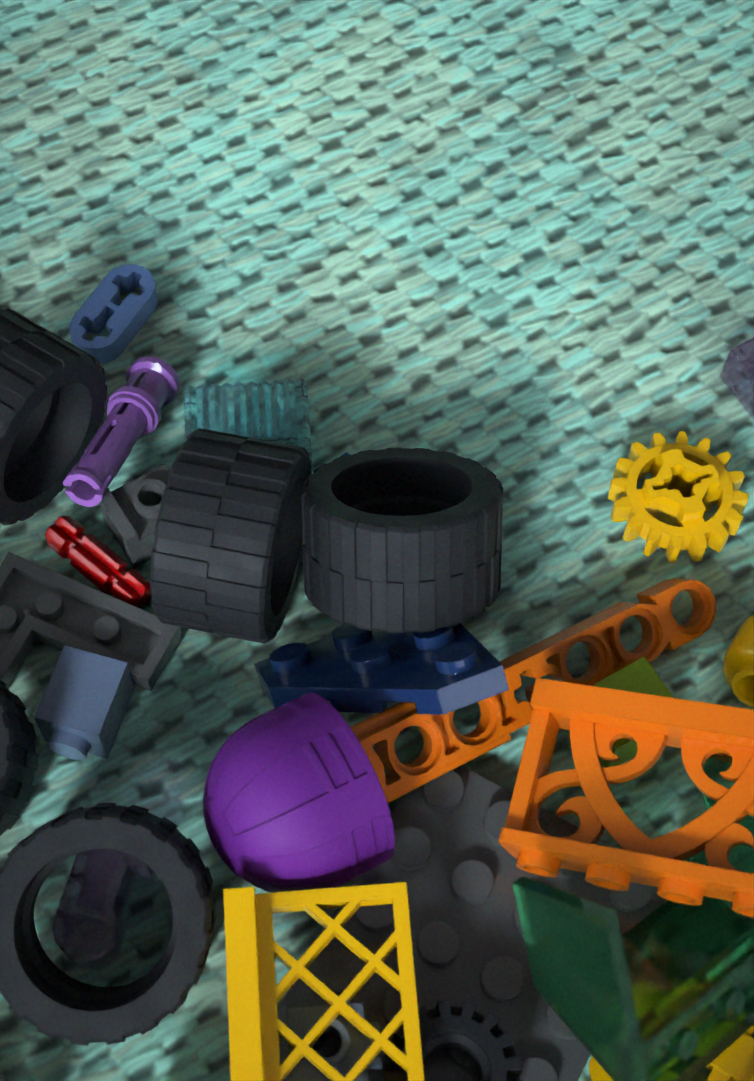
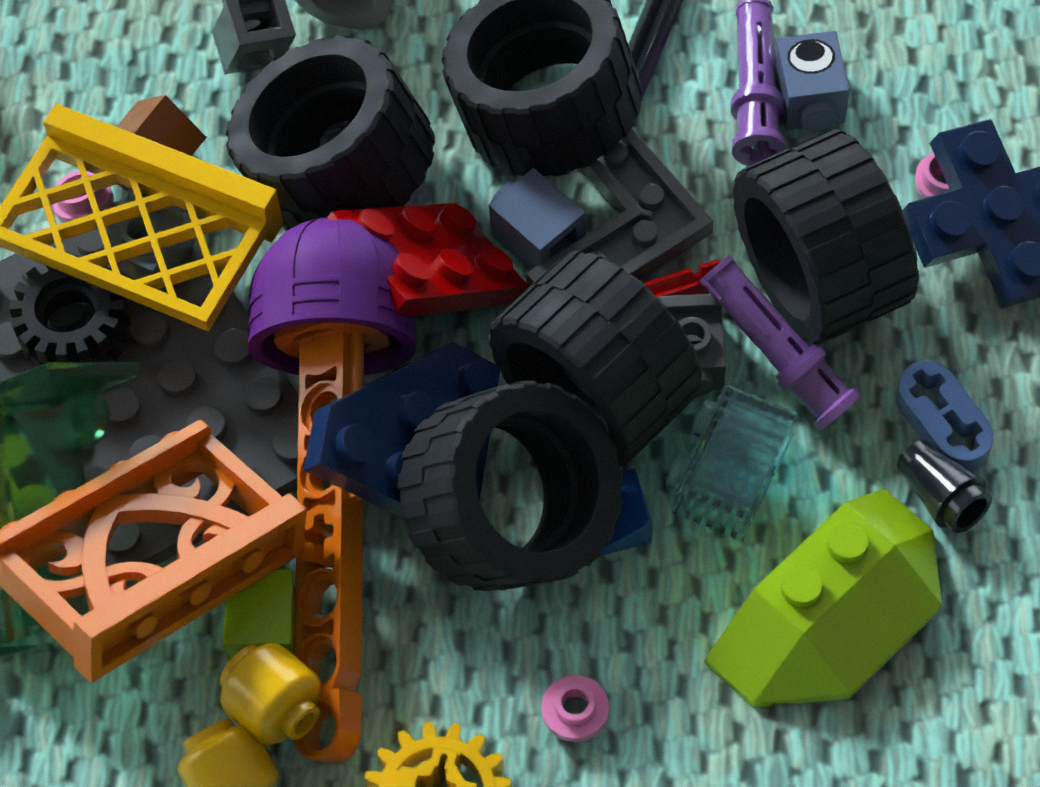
camera: 125 degrees right, 0 degrees up
(173, 746) = (441, 260): none -> red plate
(183, 282) = (947, 489): none -> black cone
(332, 311) = (833, 607): none -> lime wedge
(533, 460) = (575, 726): none -> bright pink plate
(696, 648) = (270, 693): none -> yellow head

